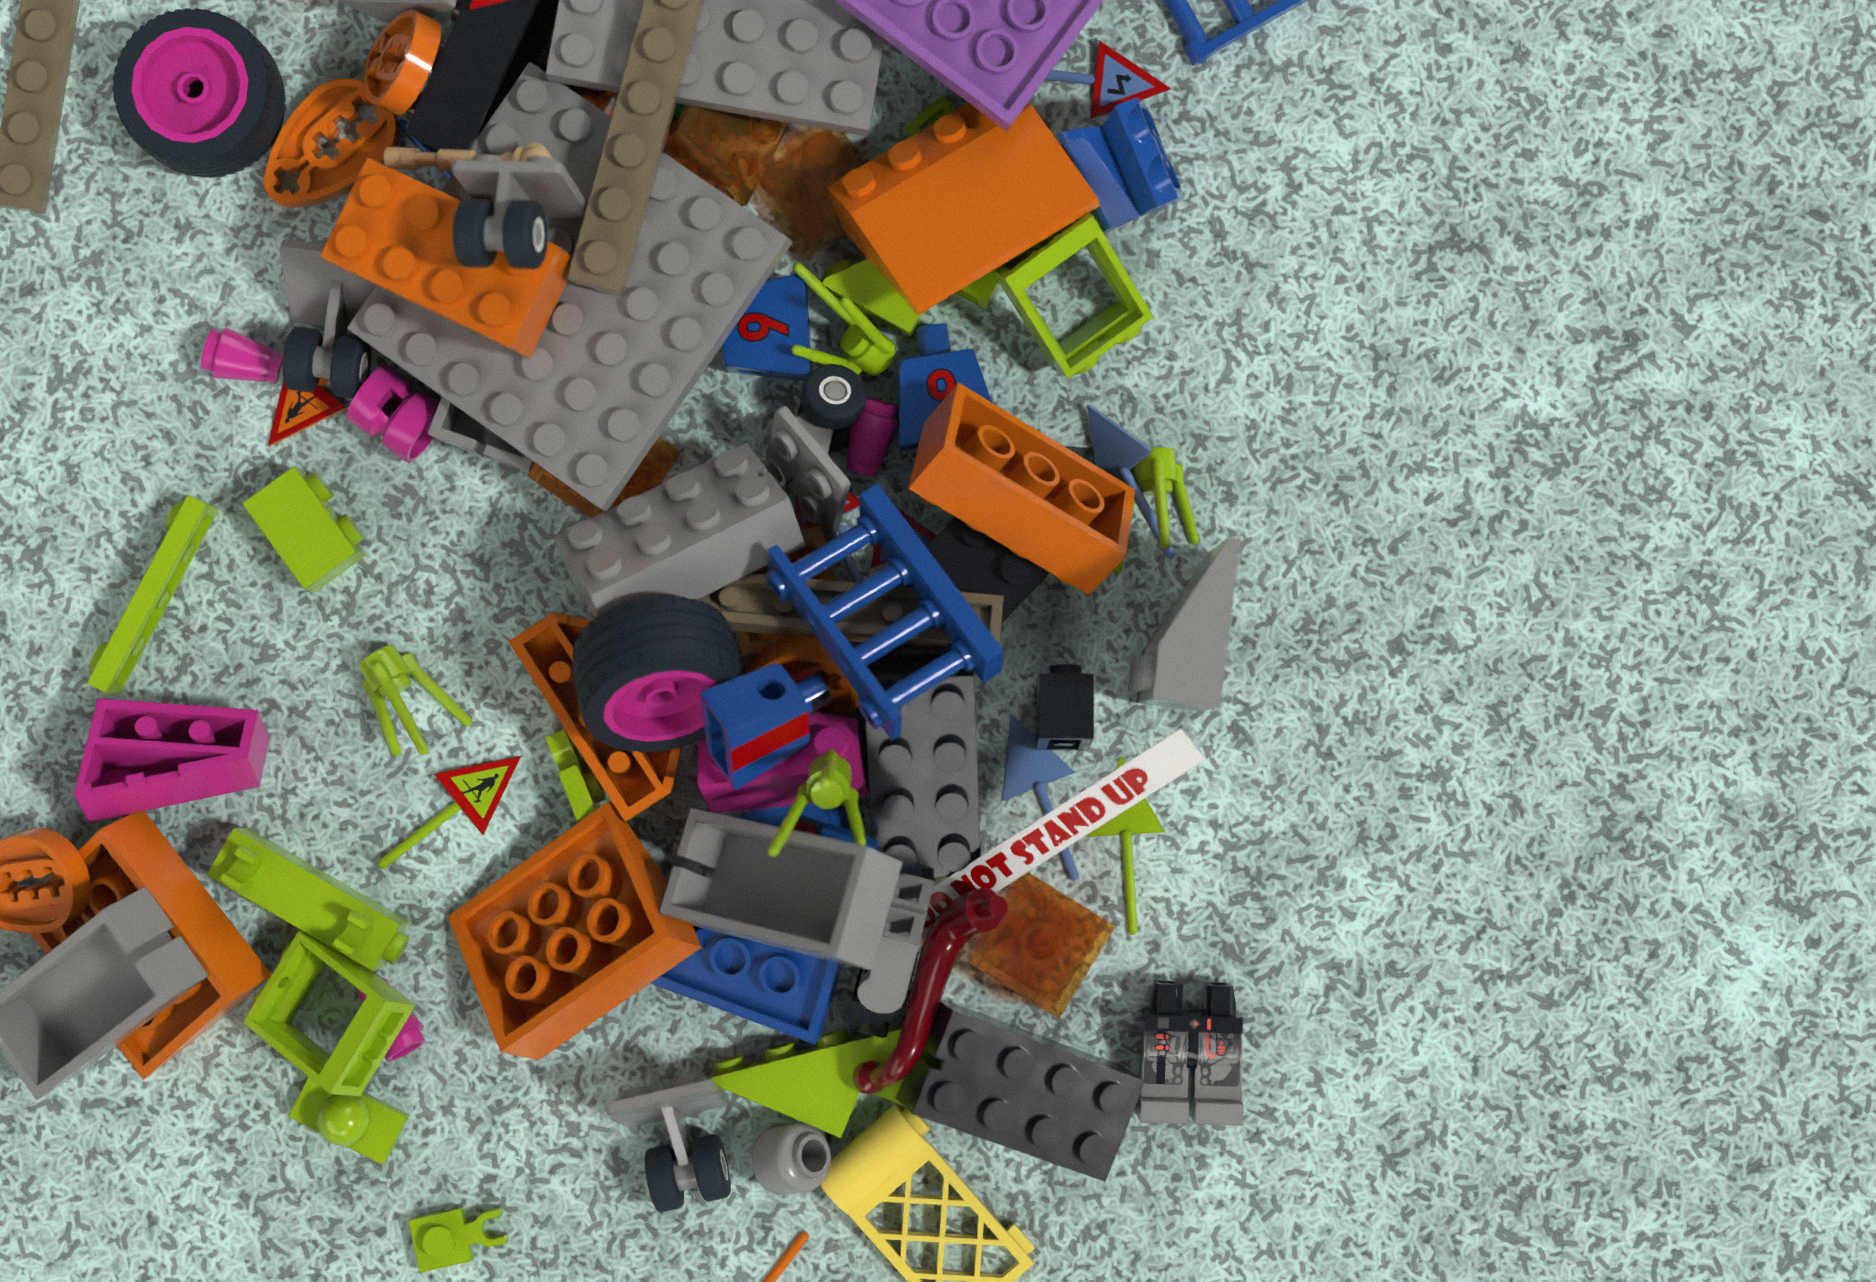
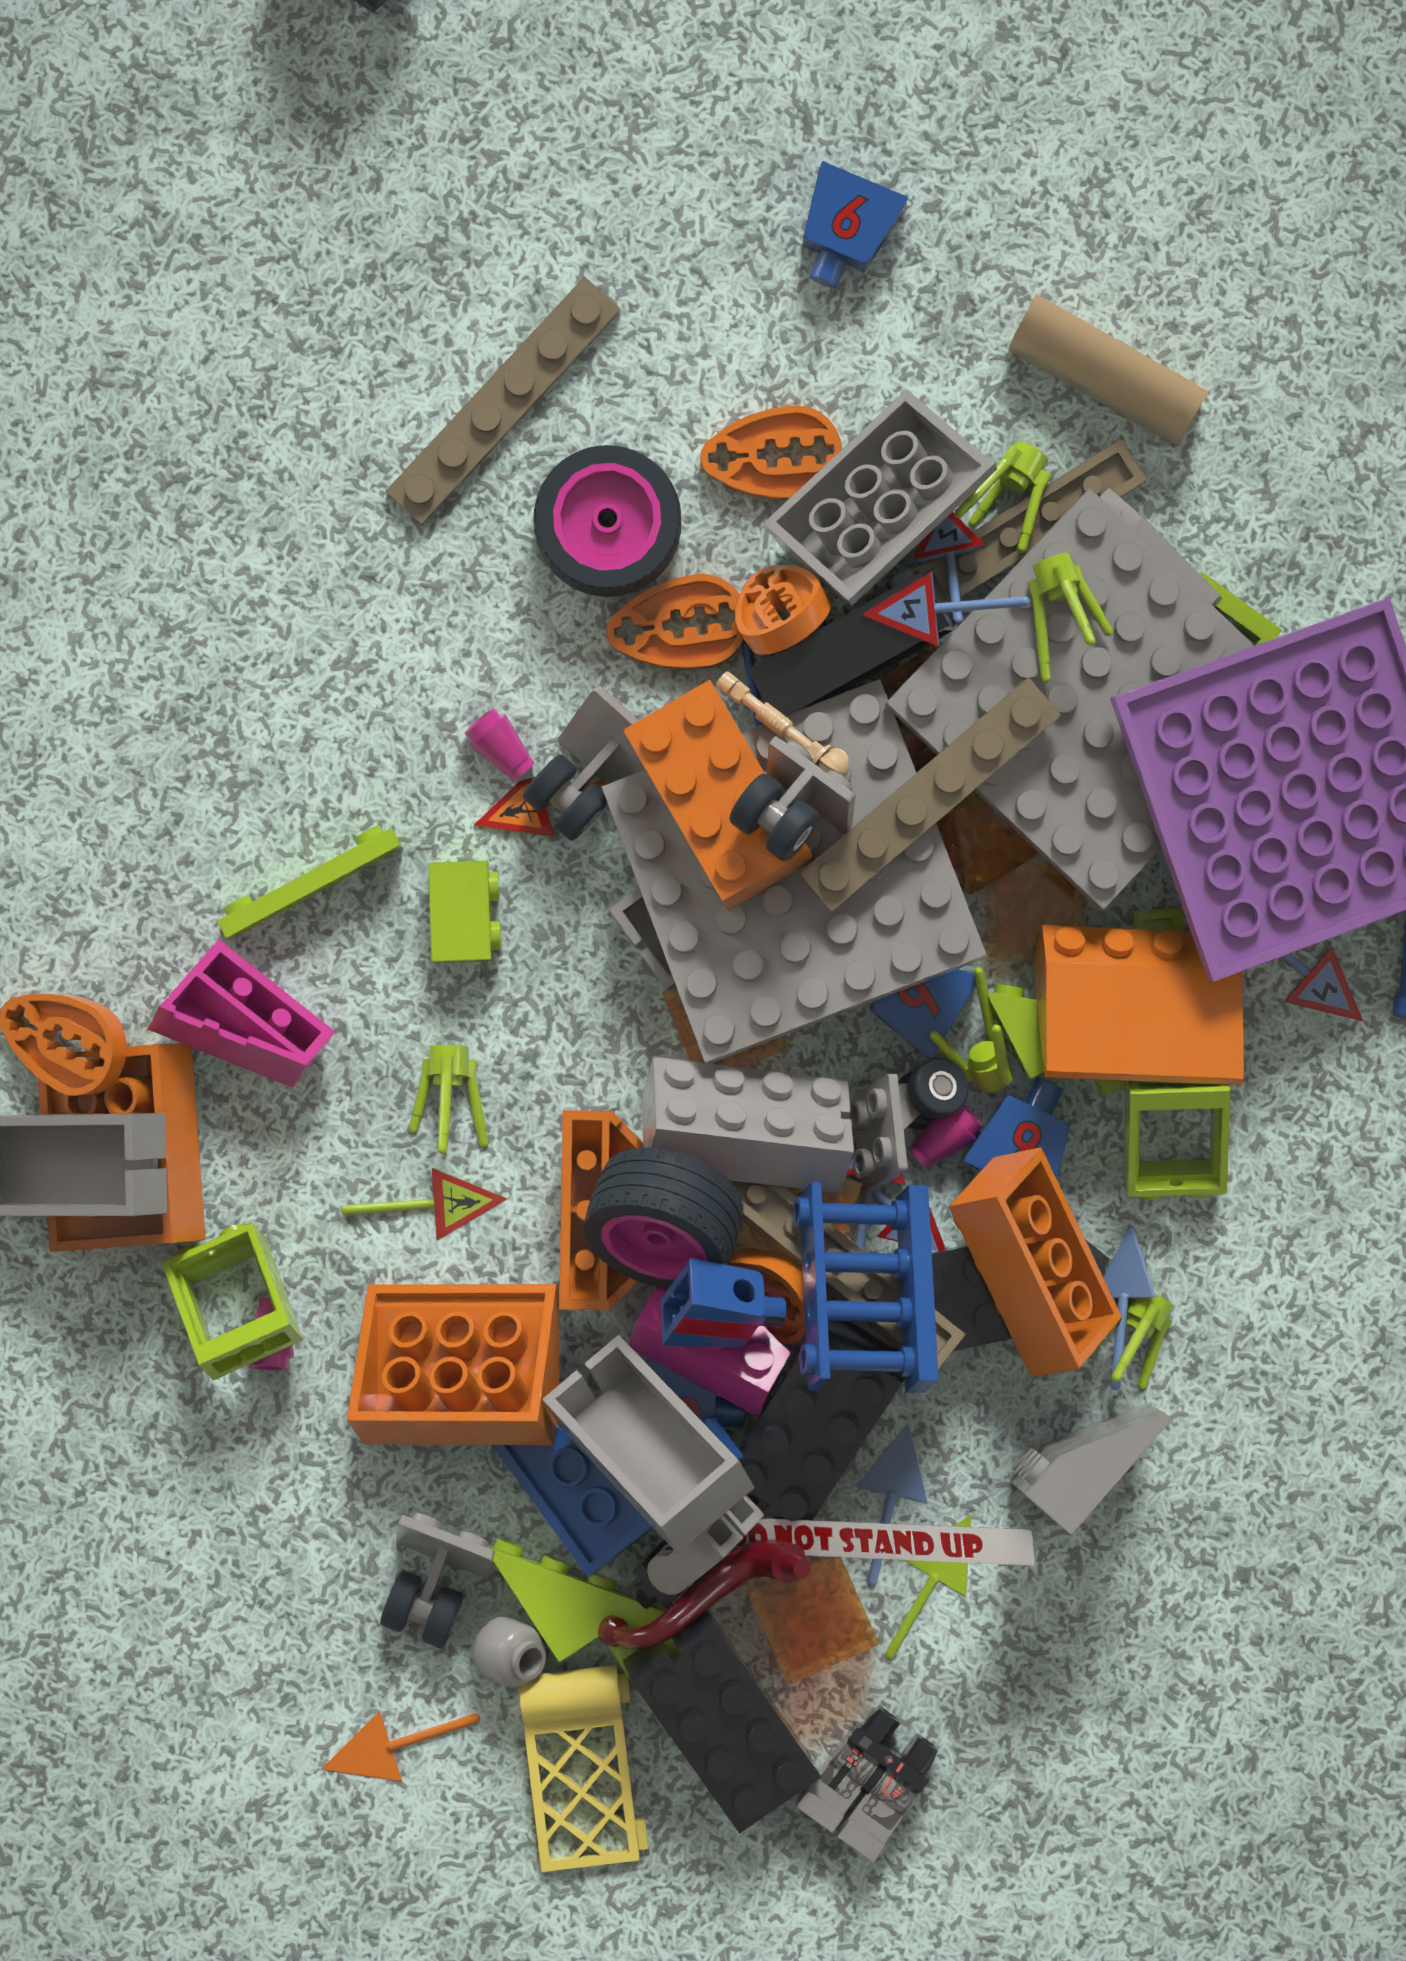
camera: 25 degrees right, 0 degrees up
(310, 899) = (273, 1201): lime brick -> none
(351, 1121) = (188, 1388): lime tile -> none
(409, 425) = (599, 887): dark pink wheel -> none
(447, 1238) = (201, 1532): lime plate -> none
(580, 786) = (540, 1257): lime plate -> none
(827, 788) = (734, 1392): lime plant -> none
(1064, 709) = (952, 1450): black brick -> none
(1124, 165) = (1283, 1062): blue piece -> none

